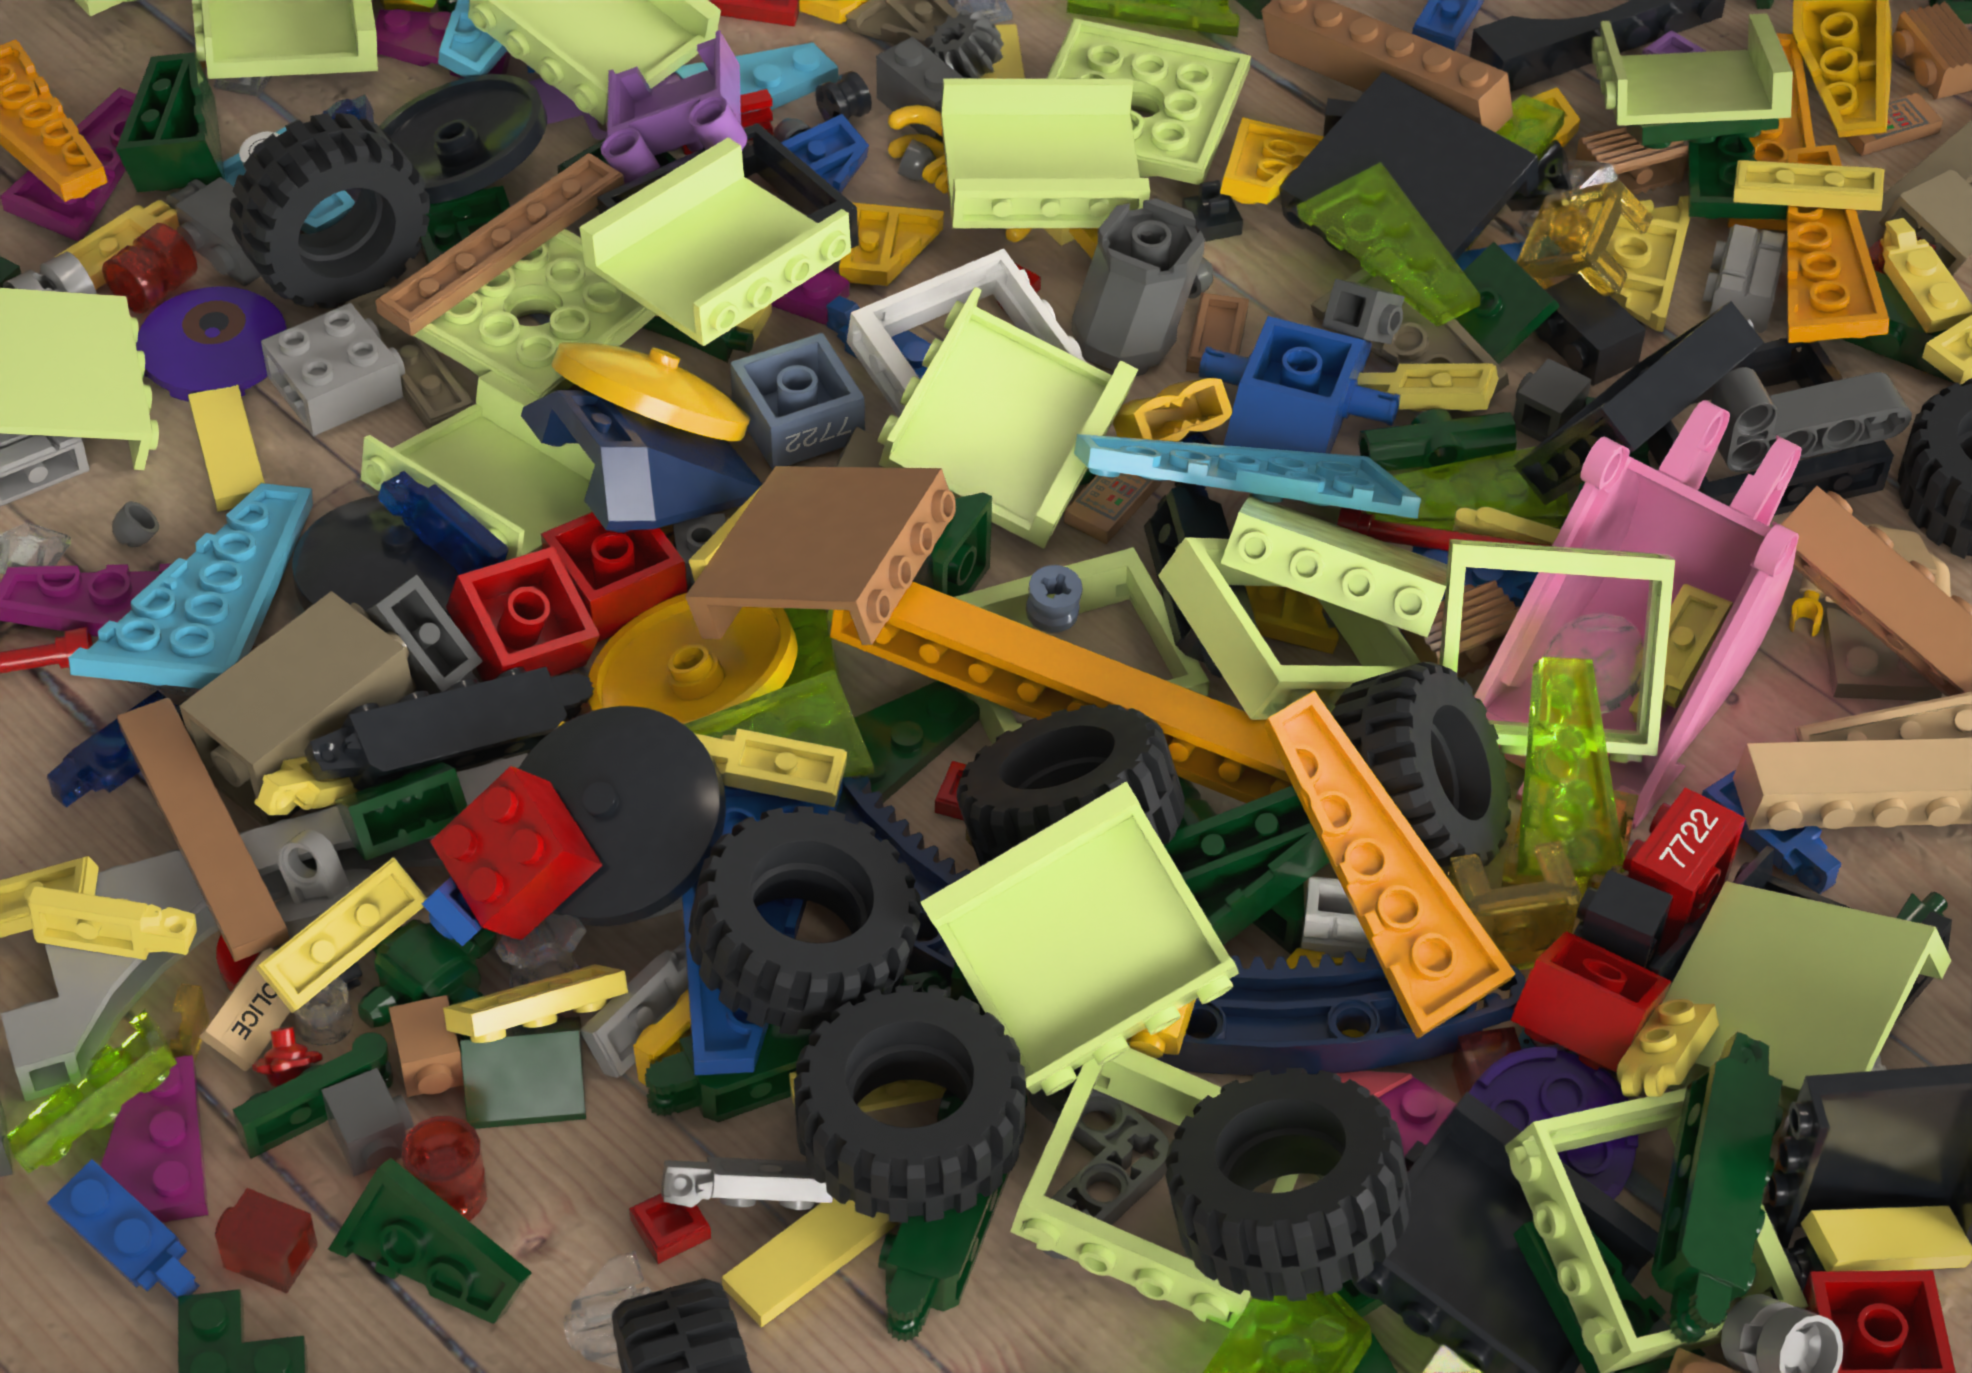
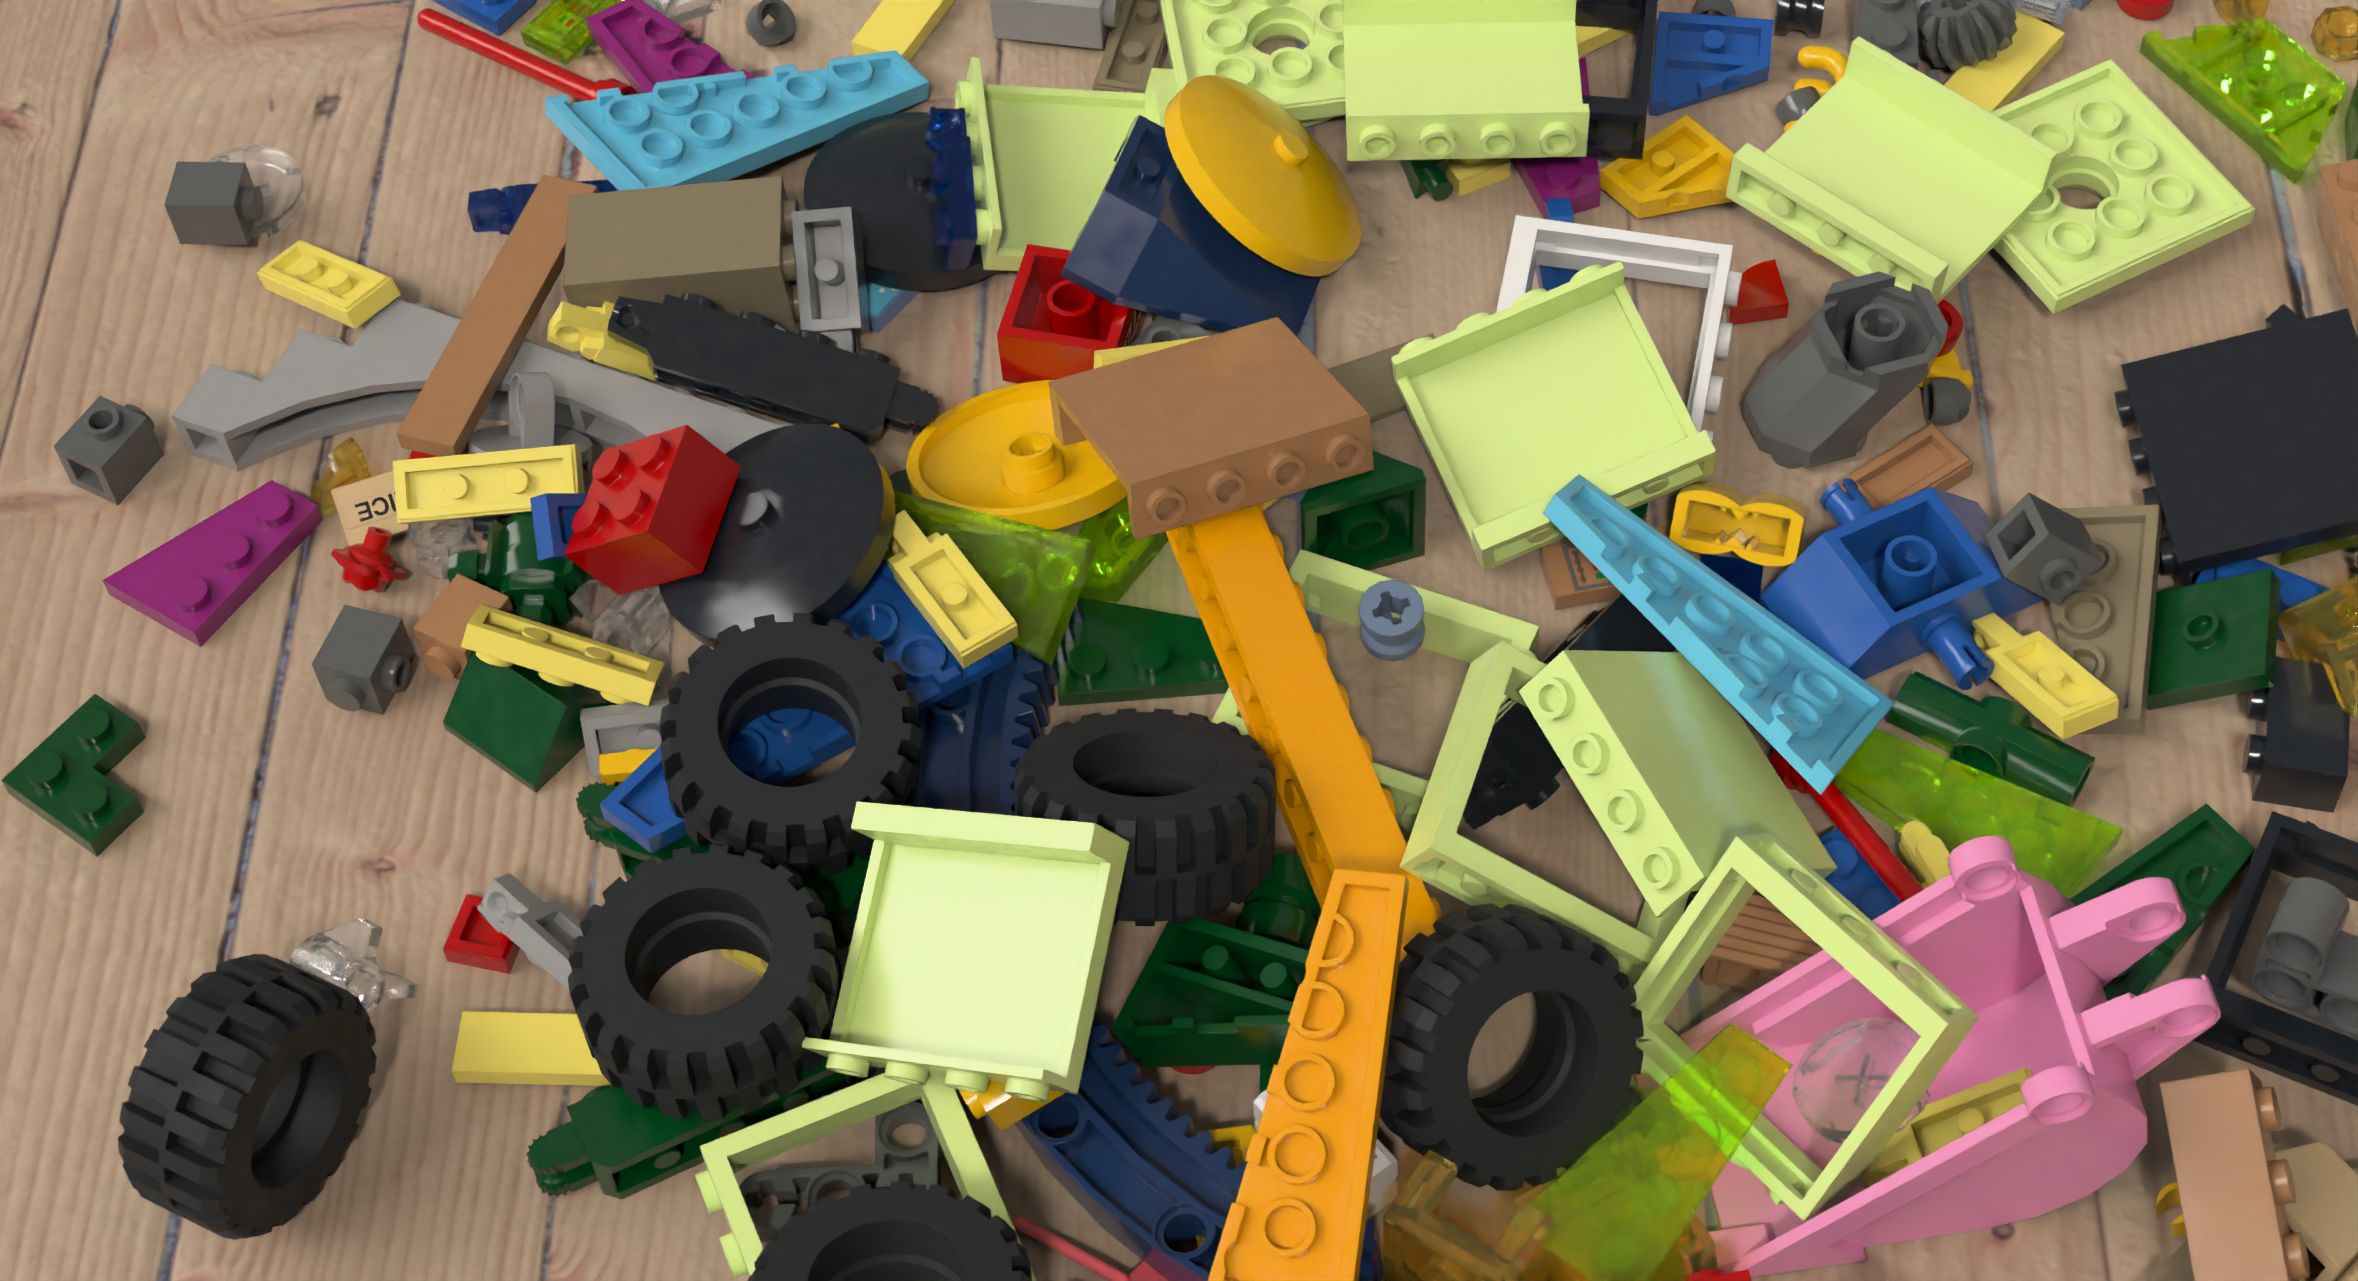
camera: 50 degrees right, 5 degrees up
(108, 924) = (341, 348): light yellow hinge -> none
(110, 1081) = (199, 488): clear neon green wing -> none
(123, 1231) = (113, 611): blue hinge -> none
(265, 1239) = (193, 699): clear red brick -> none
(298, 1104) = (314, 602): dark green plate -> none
(402, 809) = (632, 404): dark green brick -> none
(425, 1239) = (279, 748): dark green wing -> none
(449, 1161) = (362, 746): clear red wheel -> none
(523, 616) = (938, 312): red brick -> none
(797, 400) = (1404, 271): sand blue brick -> none
(1214, 212) = (2043, 351): black tile -> none
(1263, 160) = (2142, 324): yellow wing -> none
(1392, 240) = (2165, 495): clear neon green wing -> none
(1549, 399) = (2162, 781): dark grey brick -> none
(1642, 400) = (2167, 836): black window -> none

